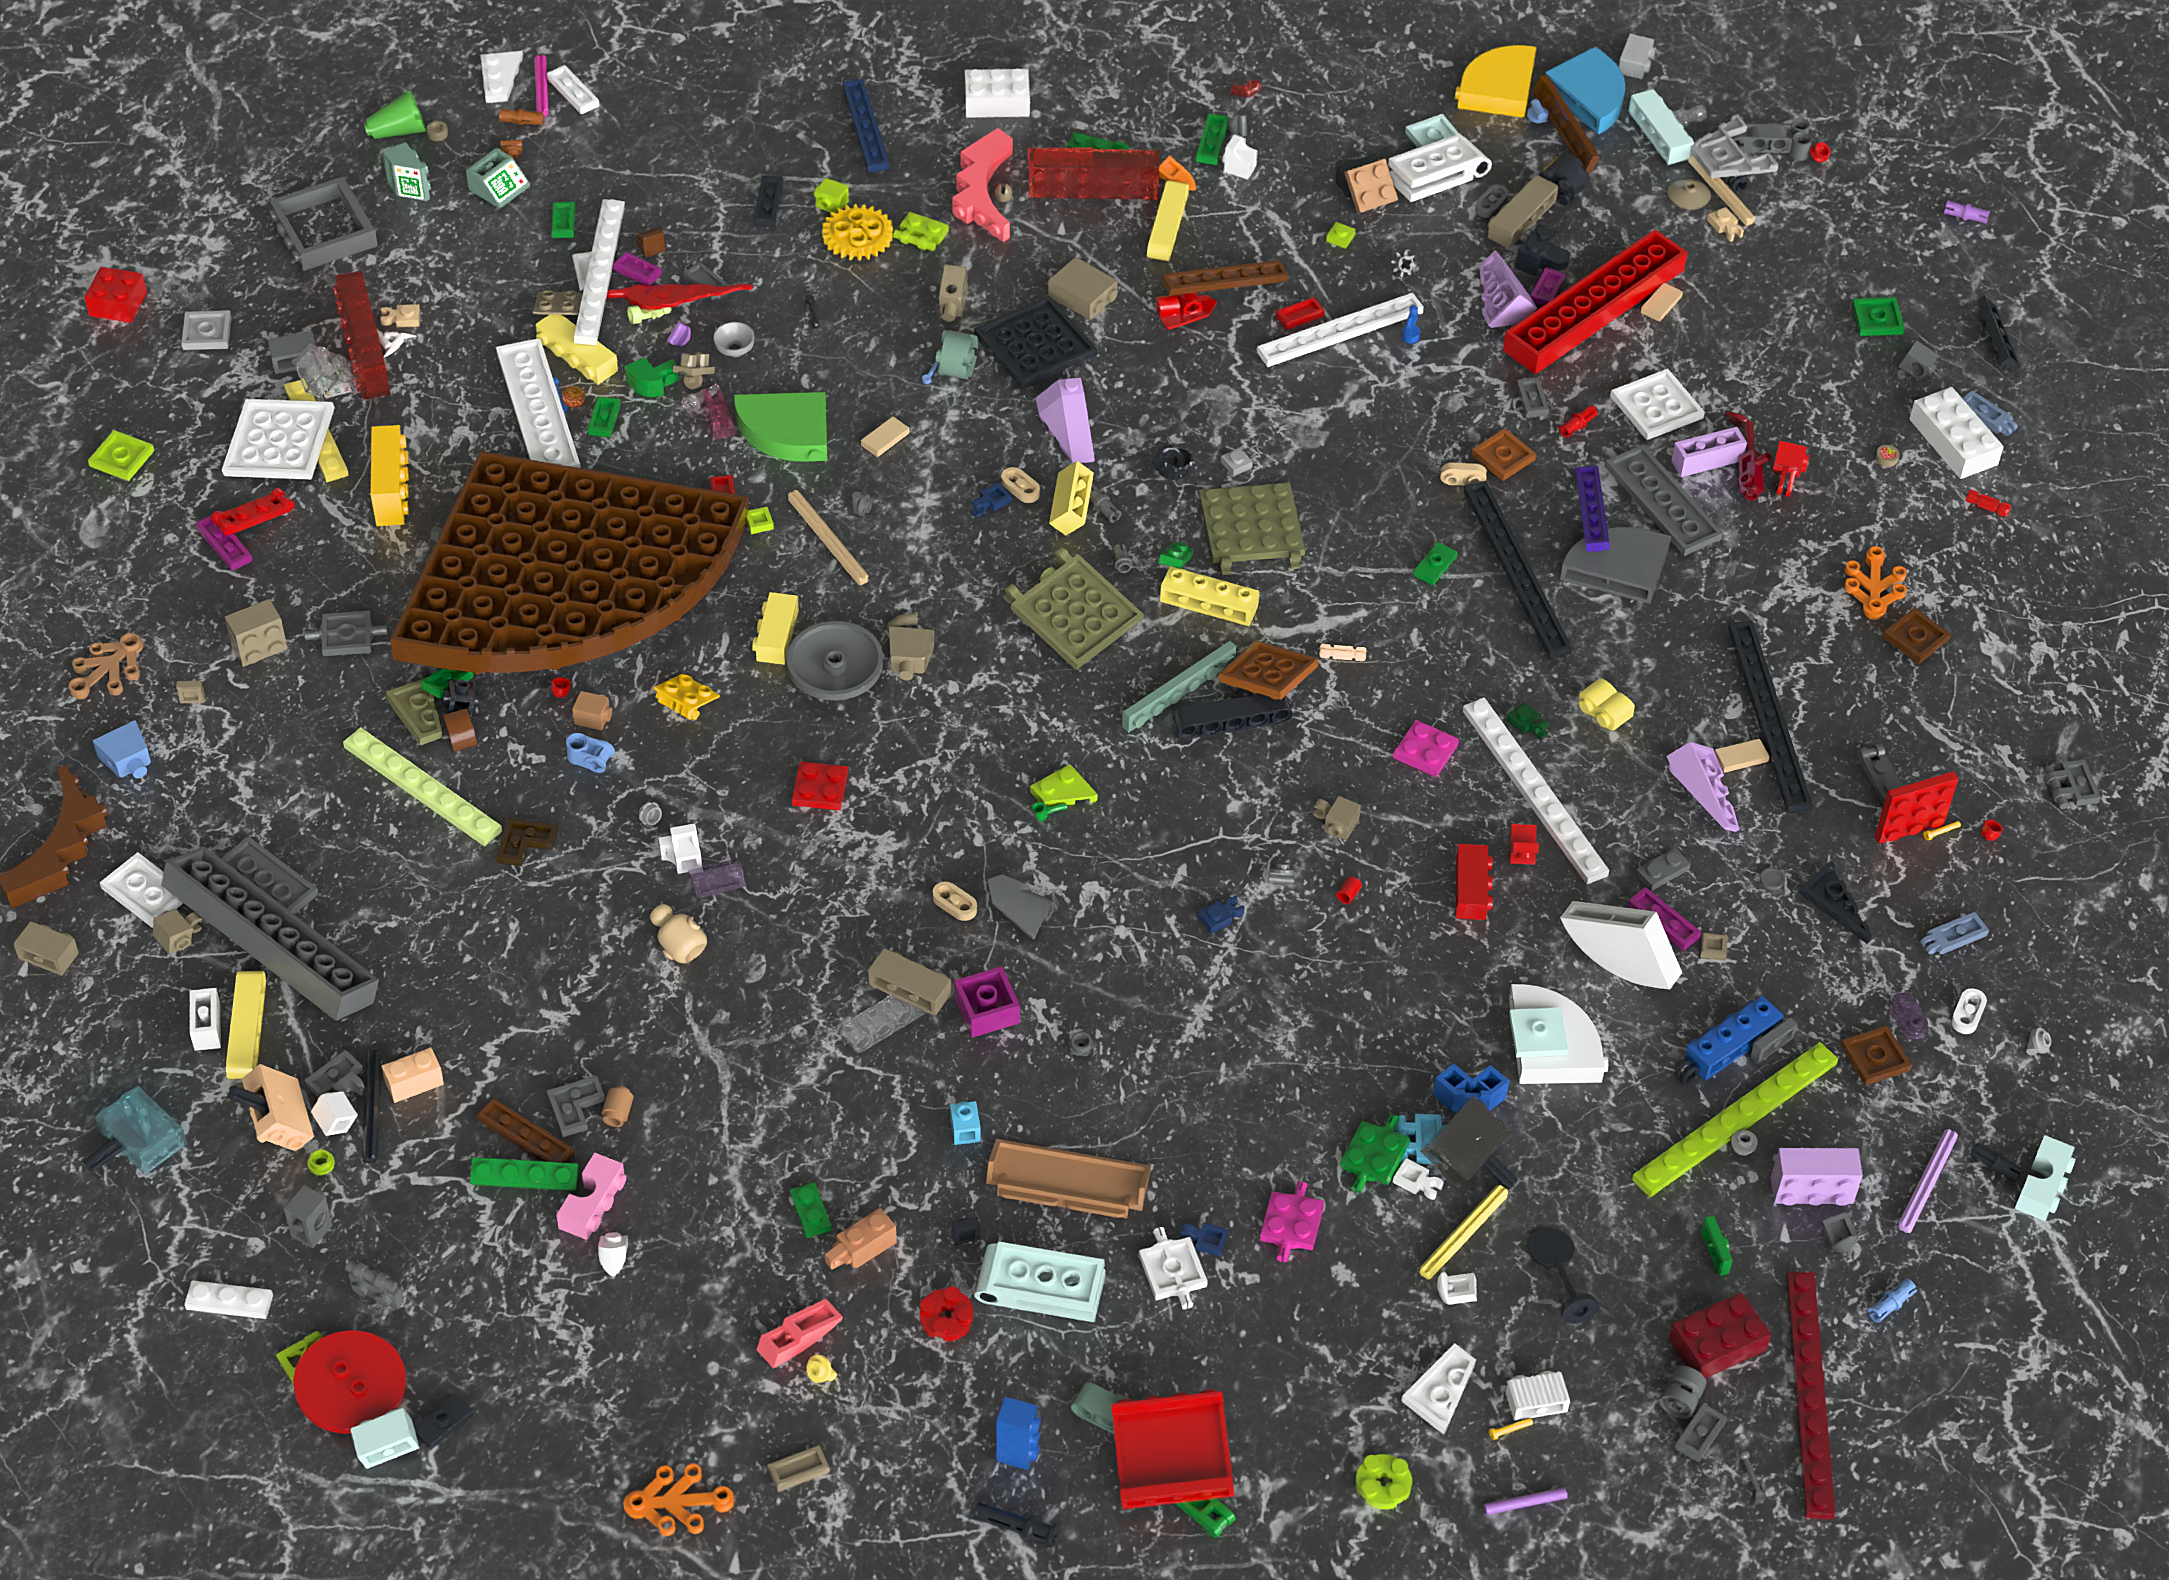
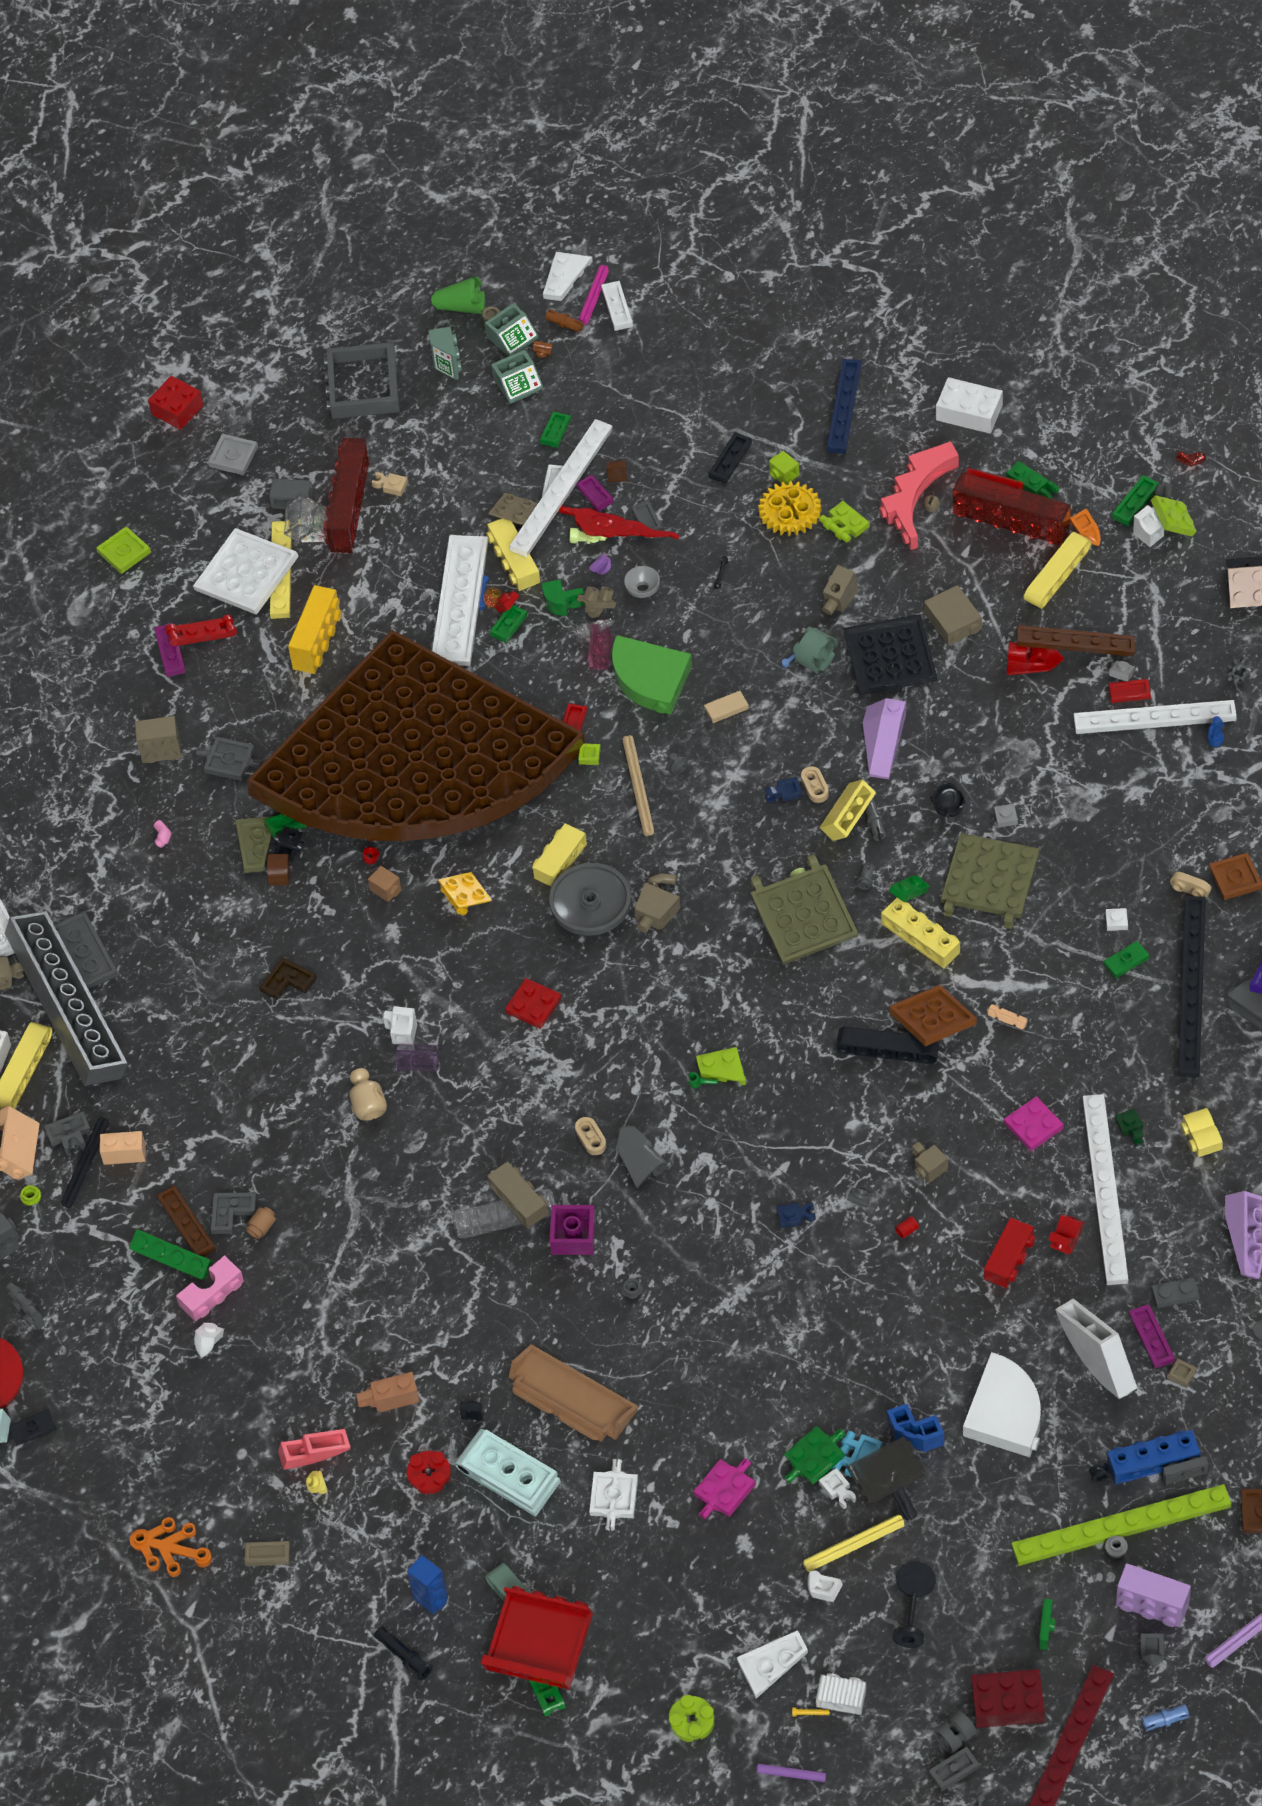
camera: 30 degrees right, 5 degrees up
(124, 751) = (25, 810): medium blue torso -> none
(128, 647) = (42, 731): medium nougat plant -> none
(190, 691) = (92, 774): dark tan tile -> none
(305, 730) = (164, 834): none -> bright pink arm
(334, 1113) = (53, 1160): white brick -> none
(396, 338) = (369, 510): white piece -> none
(422, 786) = (232, 909): yellowish green plate -> none
(468, 136) = (510, 330): none -> slope
(588, 752) = (370, 921): medium blue piece -> none
(592, 394) = (505, 601): none -> red plate
(650, 813) = (391, 986): light grey plate -> none
(810, 1210) = (366, 1354): green plate -> none
(965, 1122) = (512, 1323): medium azure brick -> none
(1178, 687) = (852, 1007): sand green plate -> none
(1209, 1238) = (652, 1480): dark blue plate -> none
(1261, 141) = (1173, 515): none -> lime plate
(1283, 295) = (1122, 670): none -> light grey plate
(1341, 235) = (1202, 625): lime plate -> none
(1404, 528) = (1116, 919): none -> white plate
(1538, 1032) = (990, 1400): light aqua plate -> none

